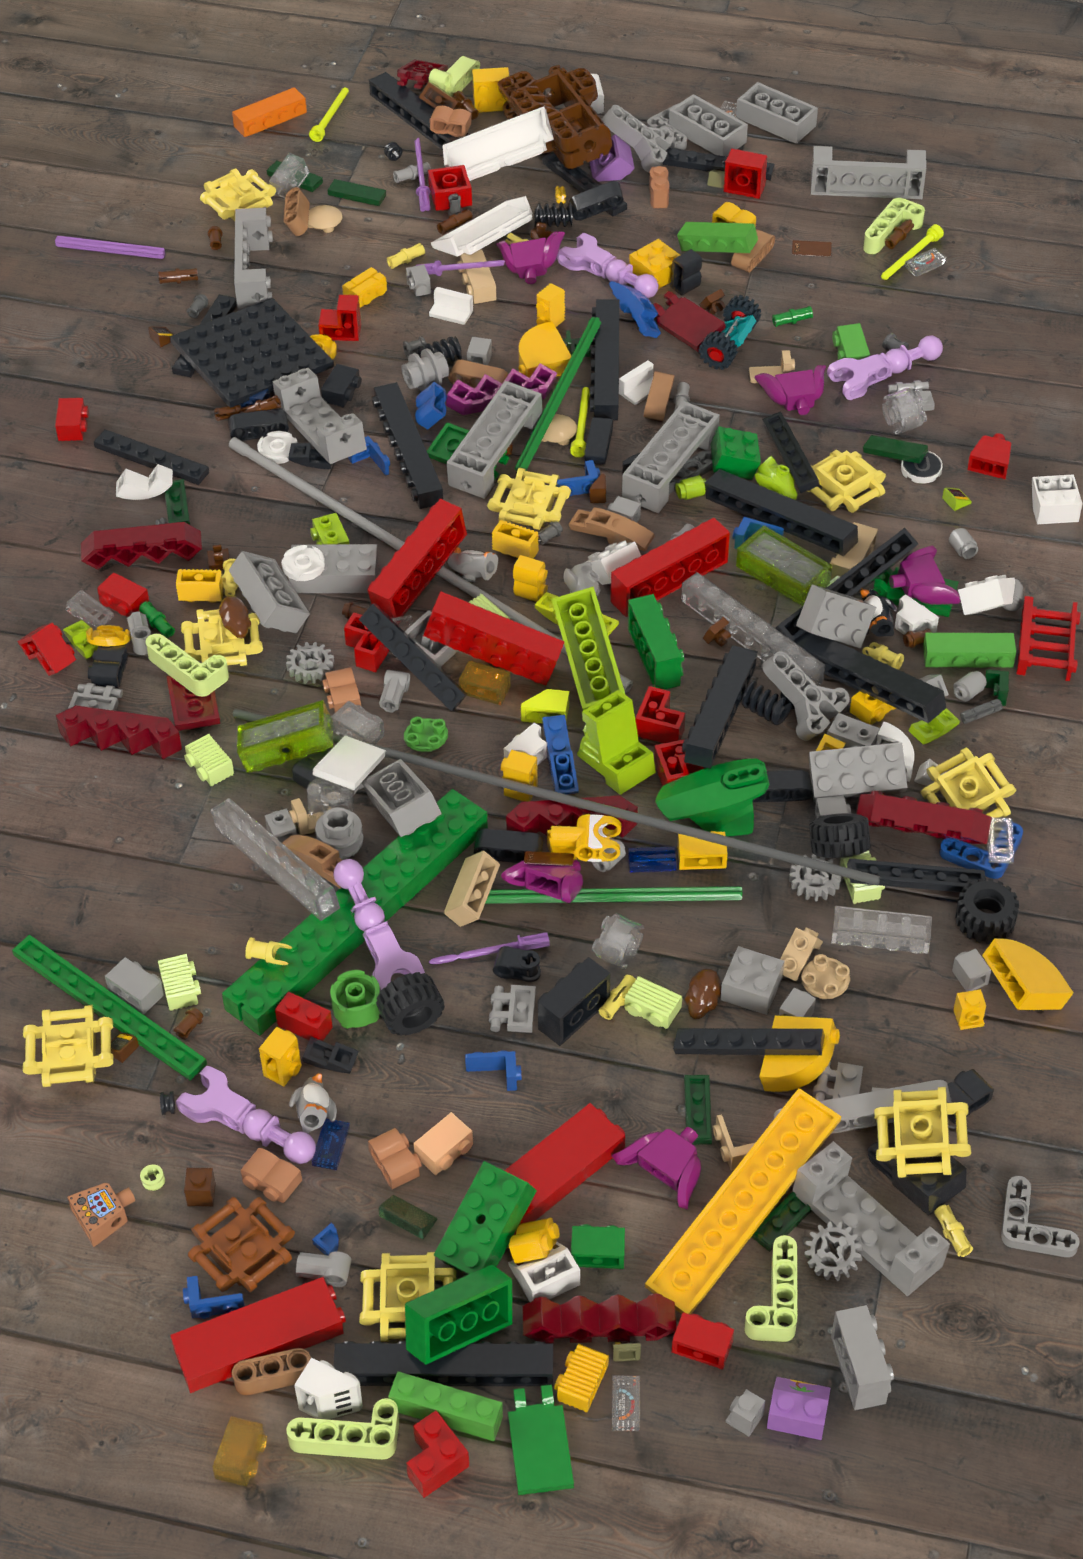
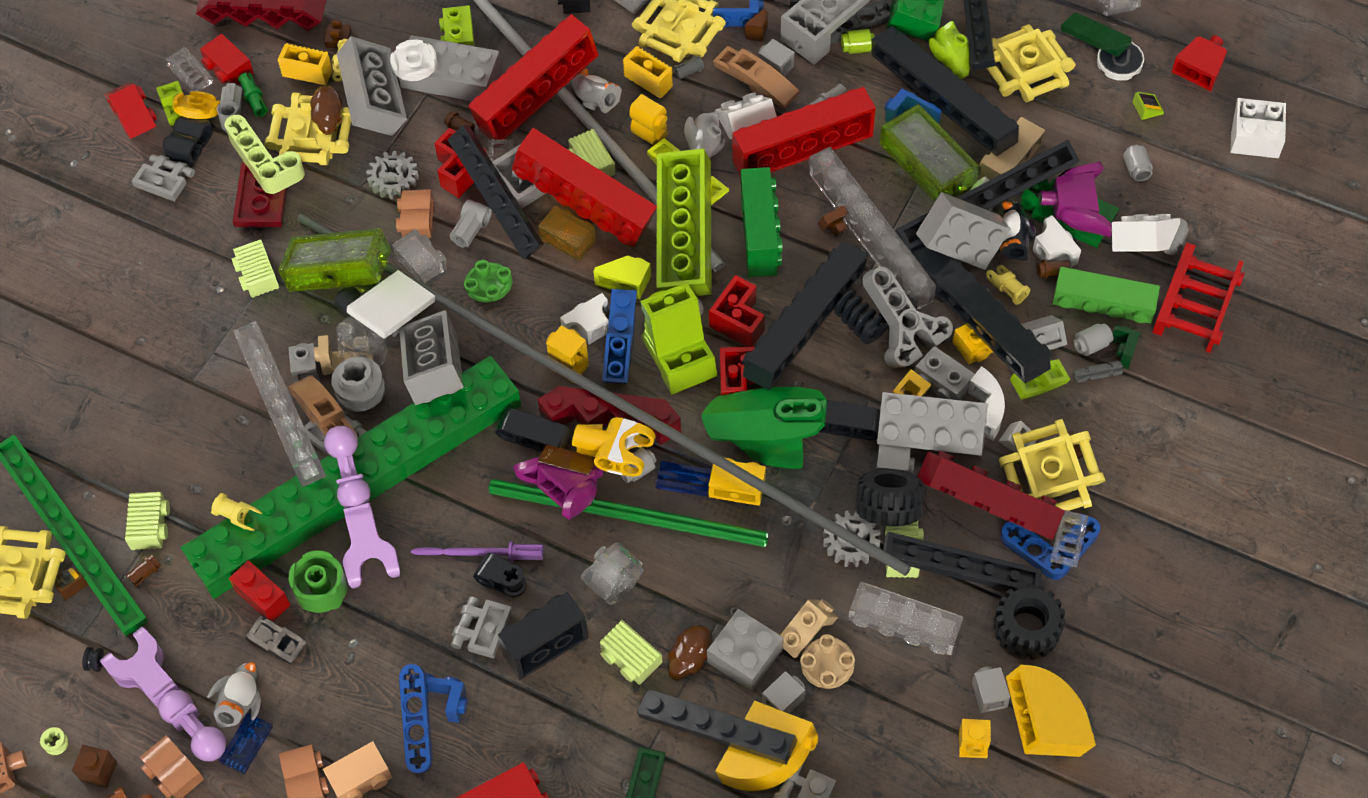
camera: 15 degrees right, 10 degrees up
(111, 727) = (169, 211): dark red brick -> none
(134, 985) = (99, 515): light grey brick -> none
(280, 1056) = (219, 633): yellow brick -> none
(410, 1004) = (368, 602): black tyre -> none
(471, 888) = (478, 476): tan brick -> none
(483, 1088) = (410, 719): none -> blue beam
(616, 998) = (583, 648): light yellow pin -> none

